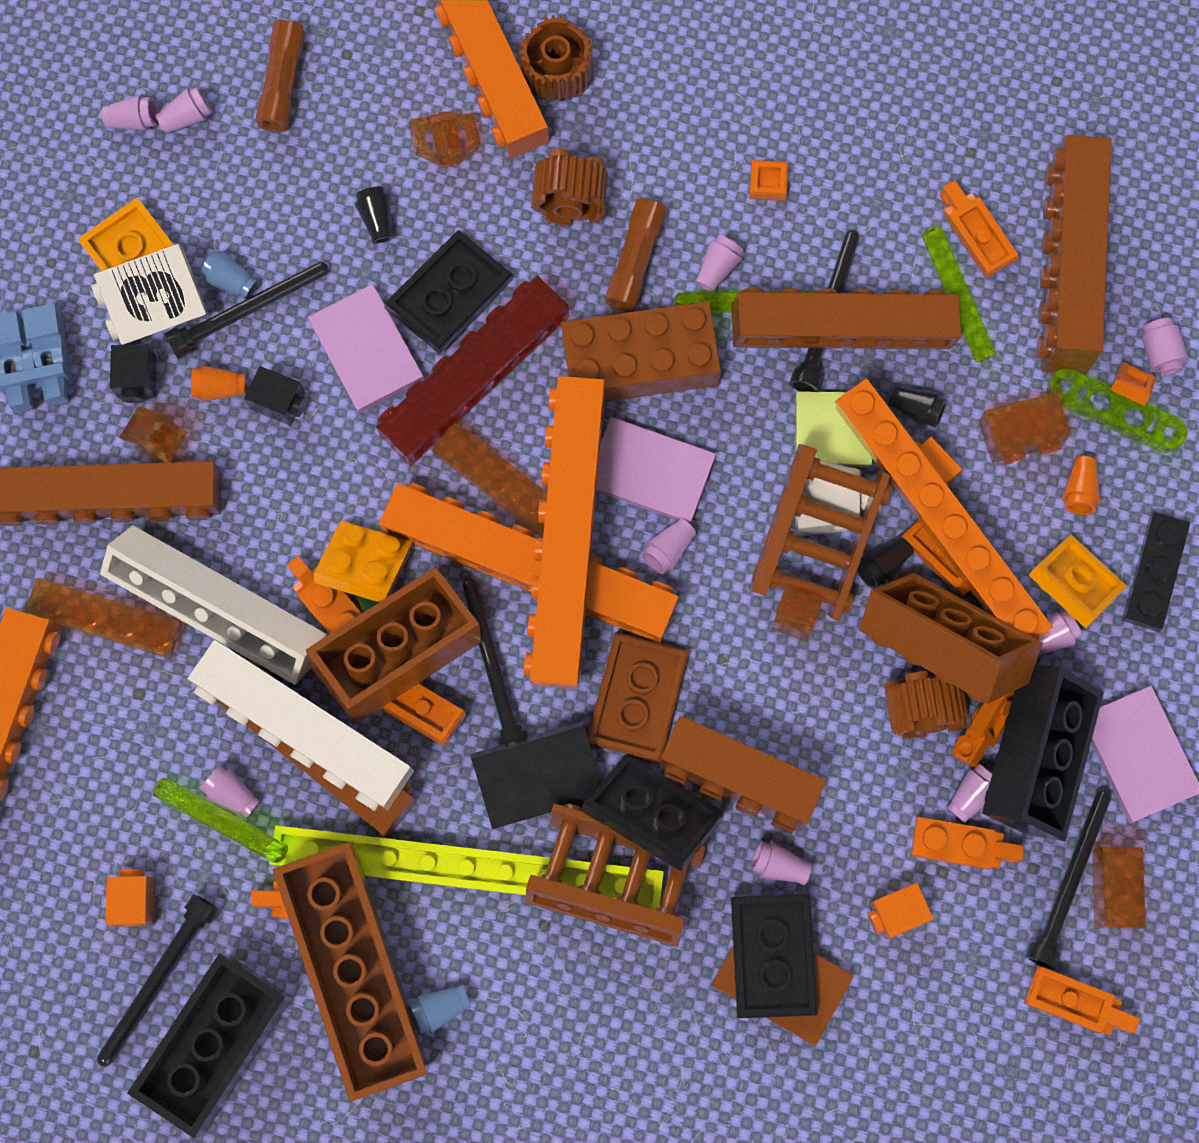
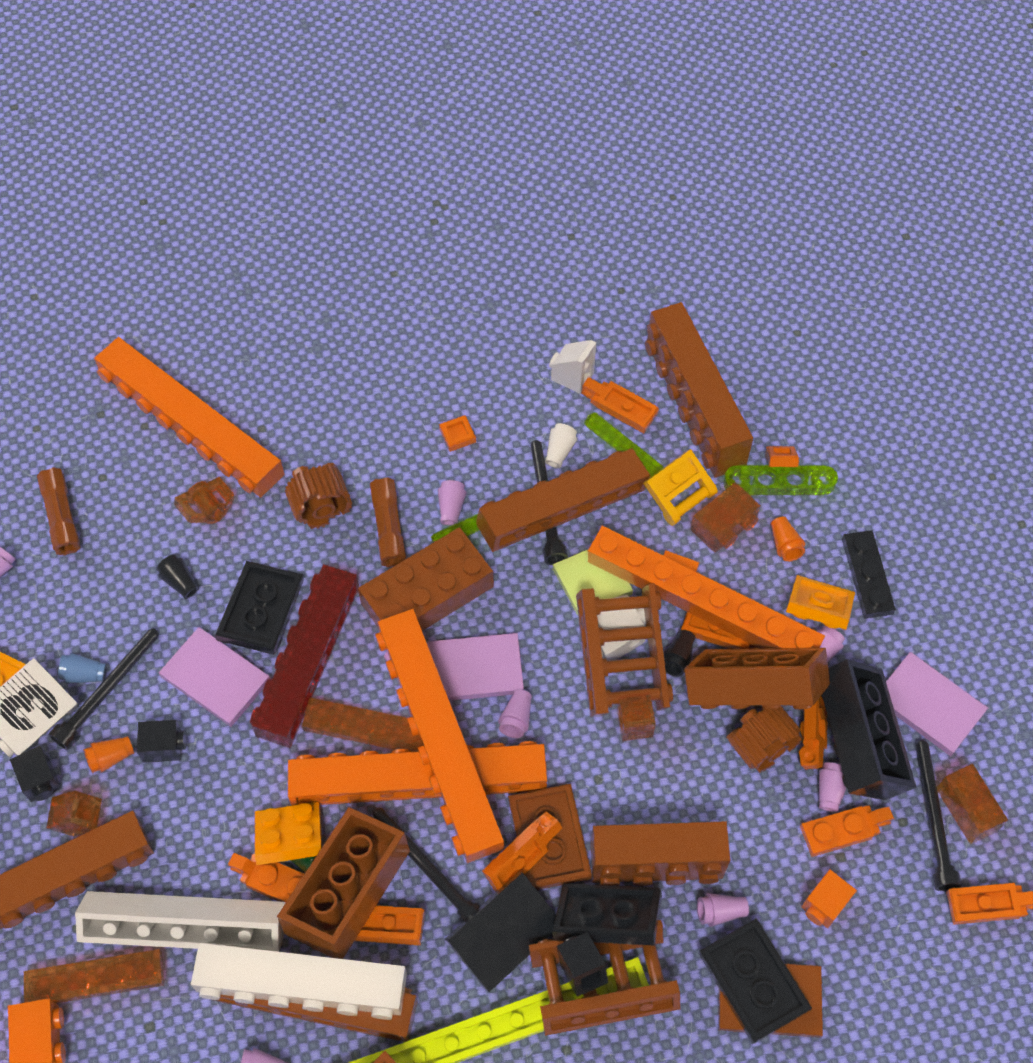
camera: 30 degrees left, 15 degrees down
(556, 59) = (265, 413): dark orange brick -> none
(595, 852) = (582, 964): none -> black brick
(598, 702) = (523, 851): none -> orange hinge
(879, 249) = (560, 443): none -> white cone
(920, 406) = (647, 534): black cone -> none
(945, 157) = (574, 364): none -> white slope
(991, 355) = (674, 480): none -> yellow plate
(1164, 346) = (789, 424): lavender brick -> none

